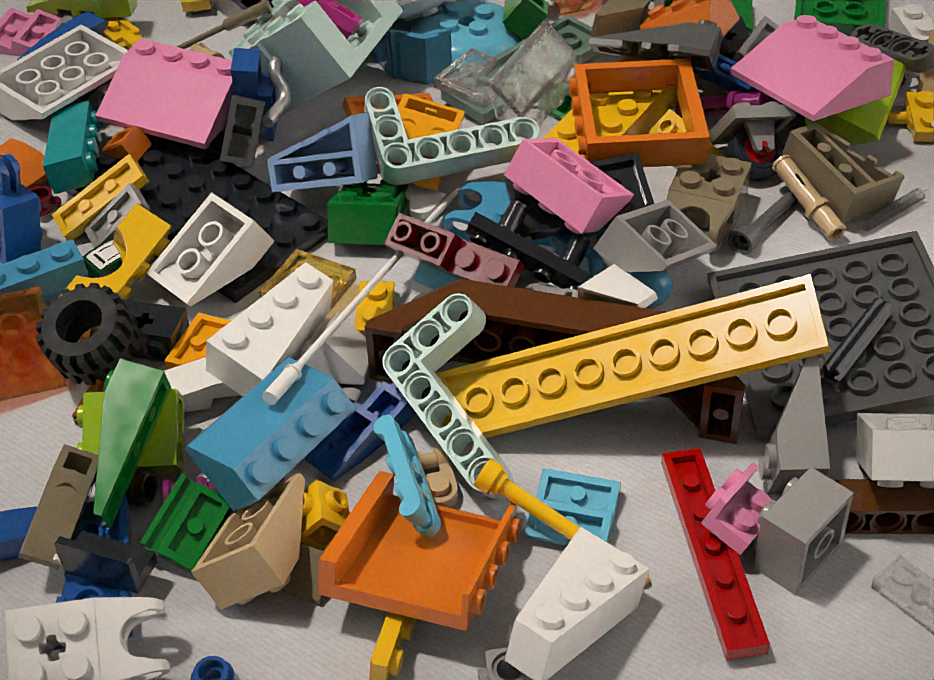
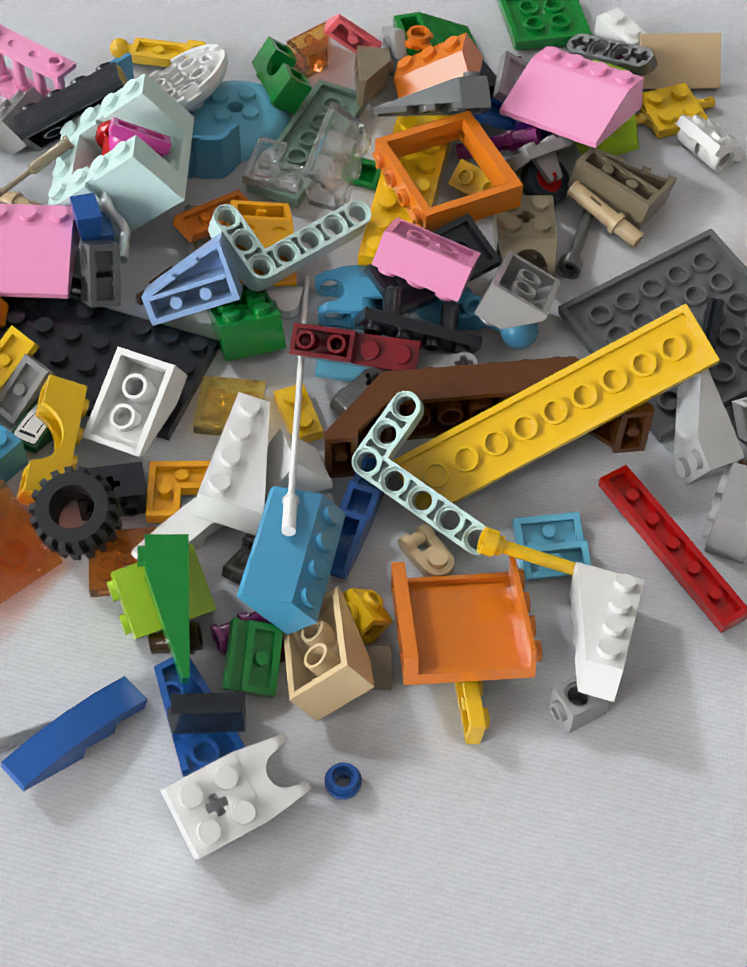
camera: 25 degrees left, 10 degrees up
(60, 505) = (141, 677): dark tan slope -> none
(412, 484) = (427, 568): medium azure plate -> none
(617, 287) = (510, 346): white slope -> none
(736, 510) = (682, 509): bright pink bracket -> none
(905, 201) = (670, 207): light grey piece -> none

